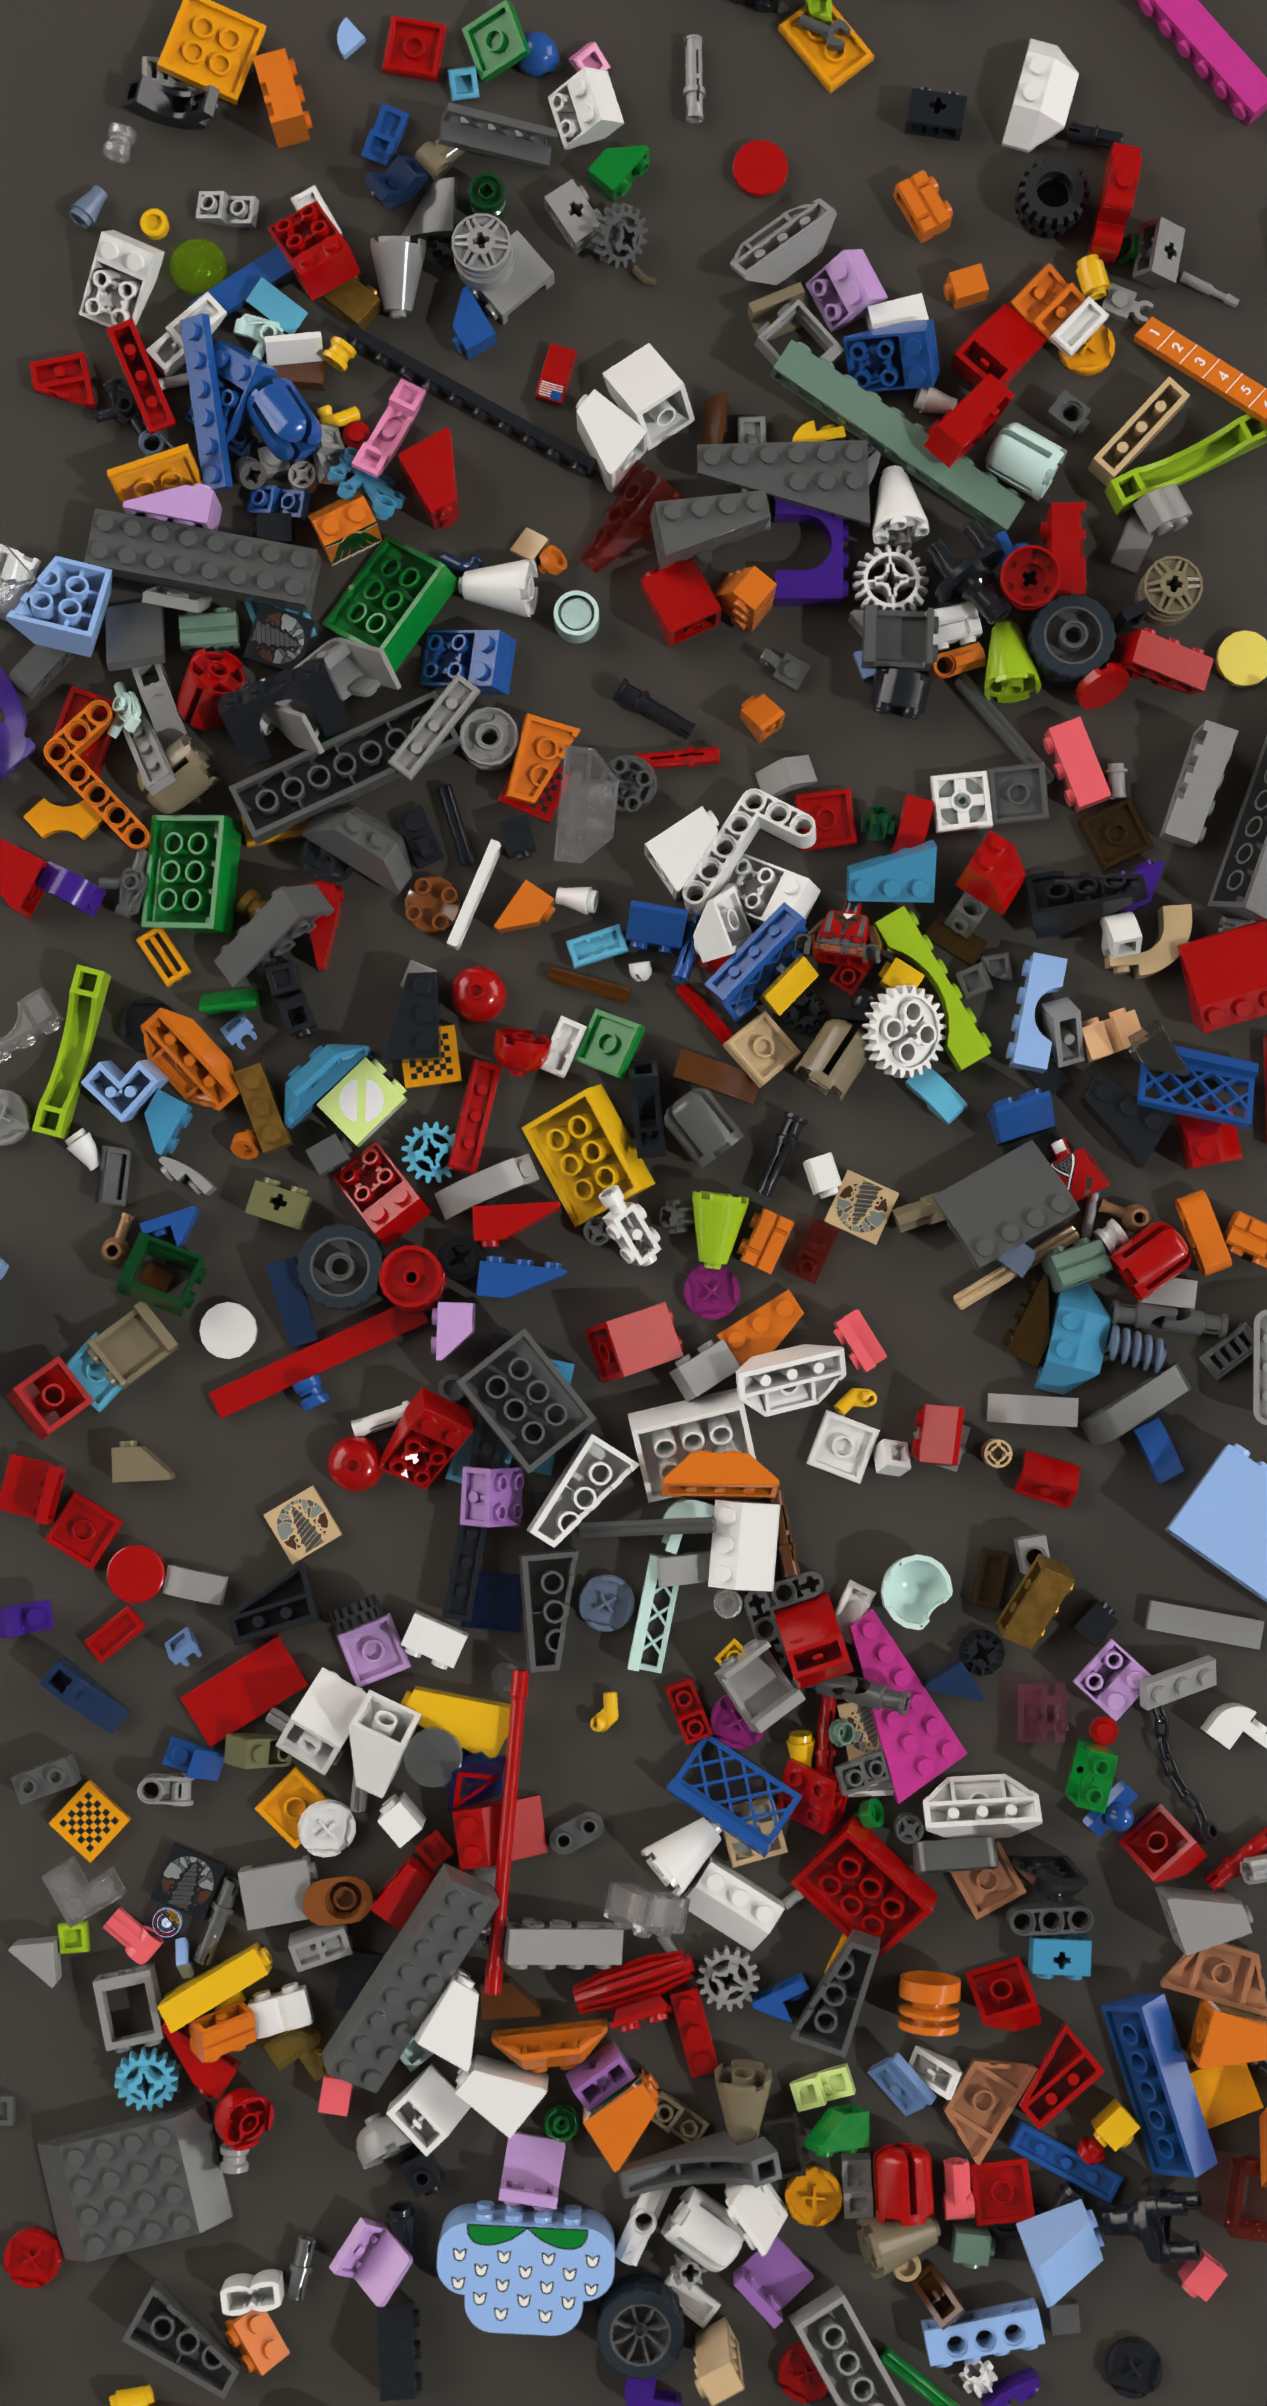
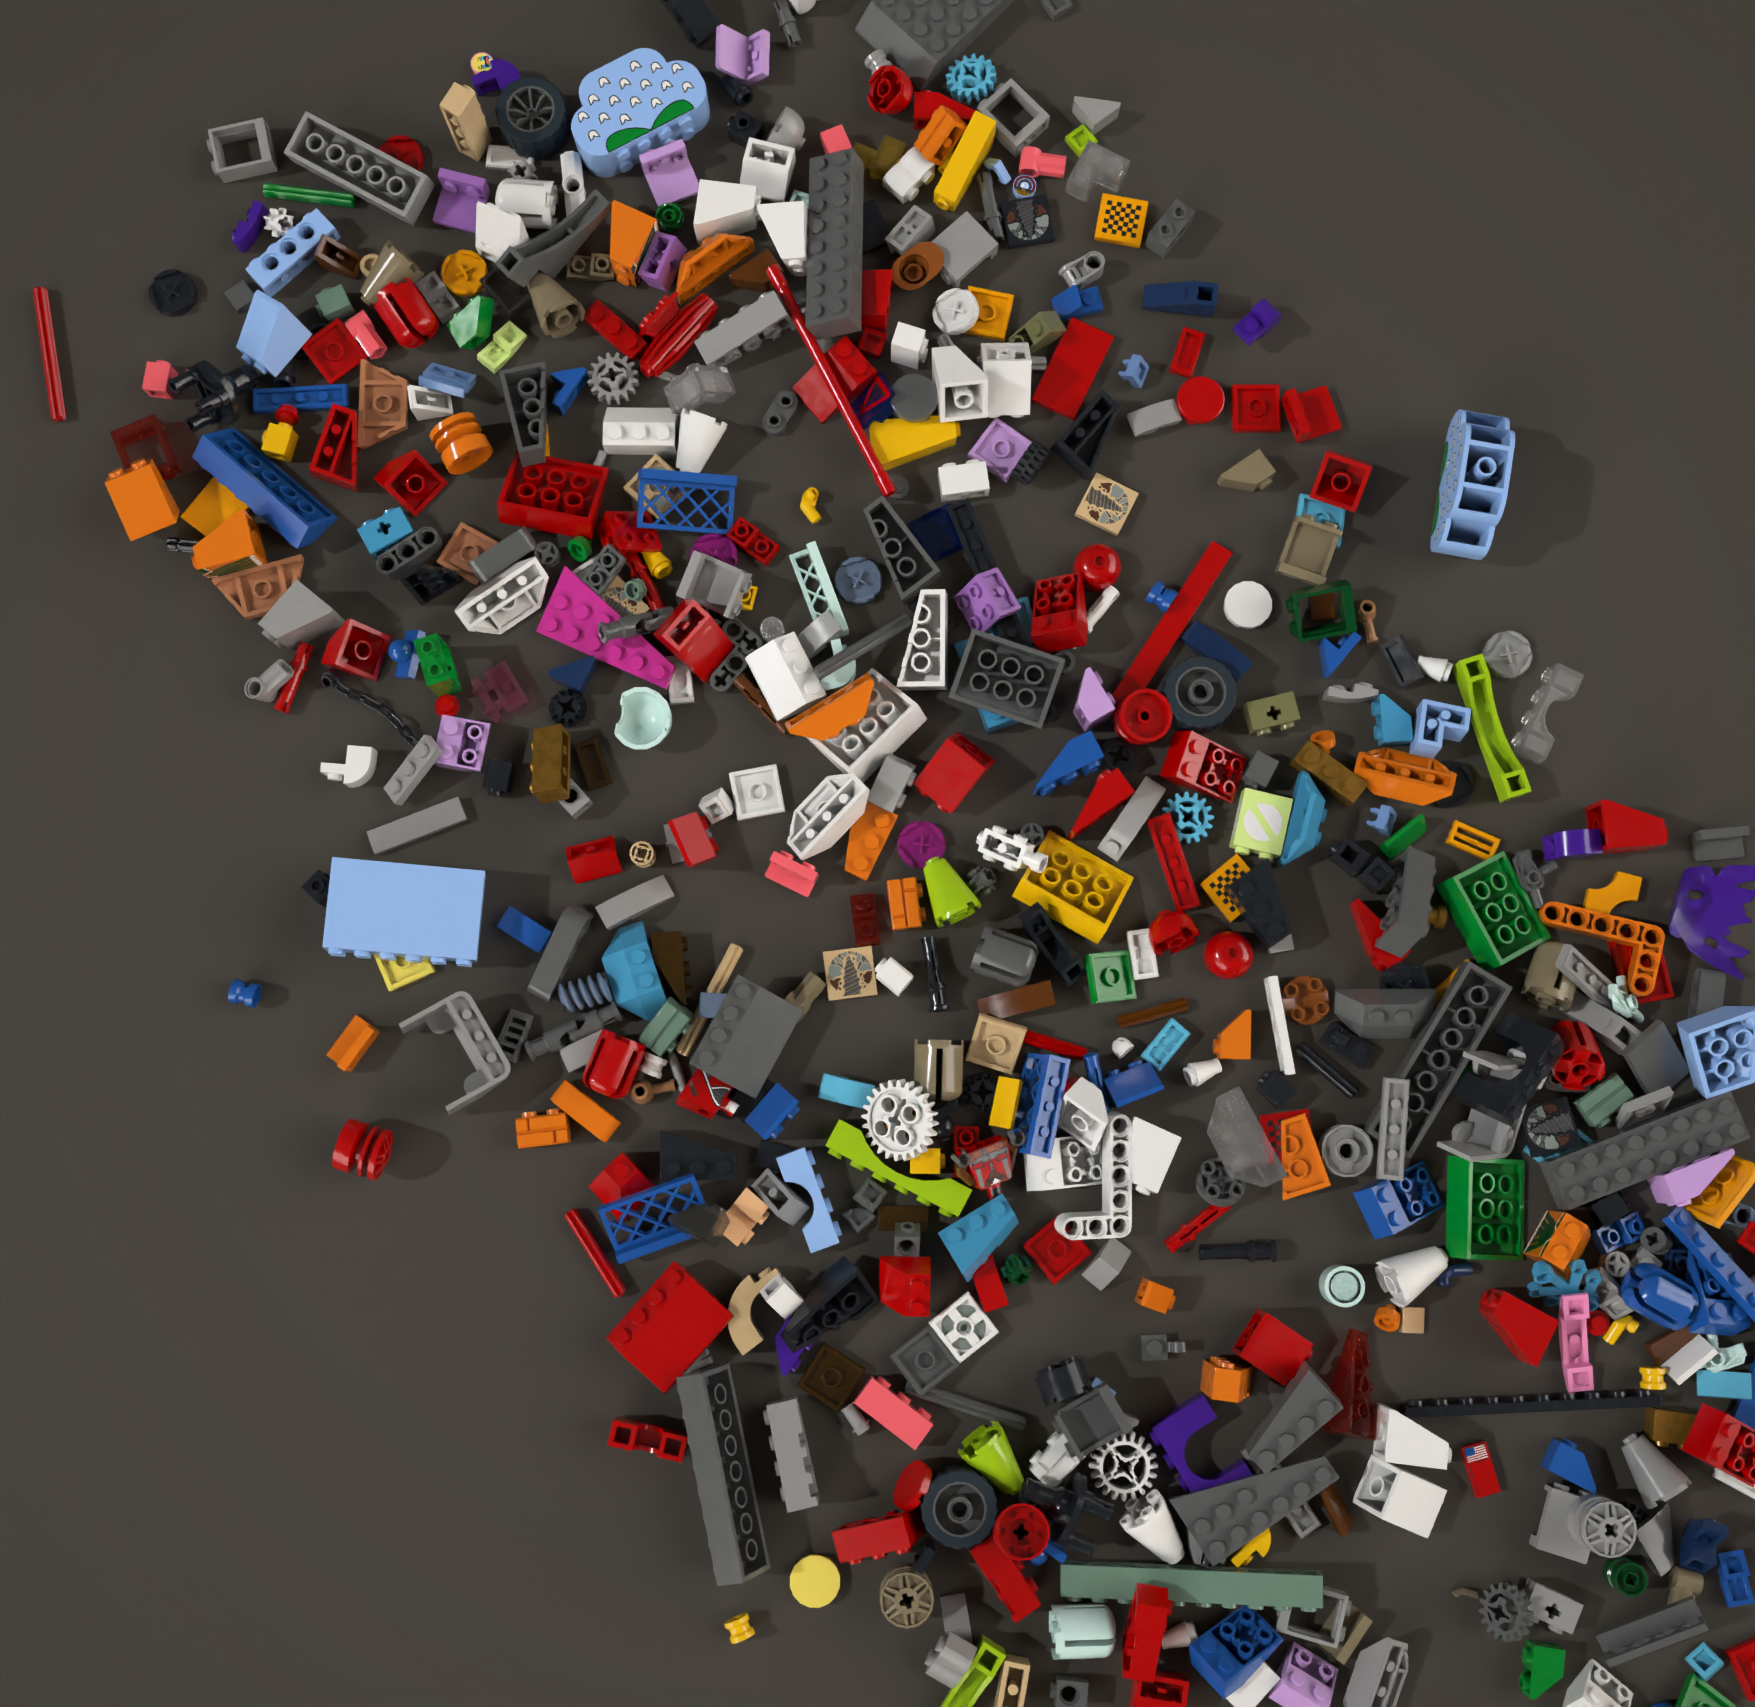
camera: 155 degrees right, 5 degrees down
(855, 1398) = (768, 832): yellow arm -> none
(959, 661) = (1032, 1437): orange piece -> none

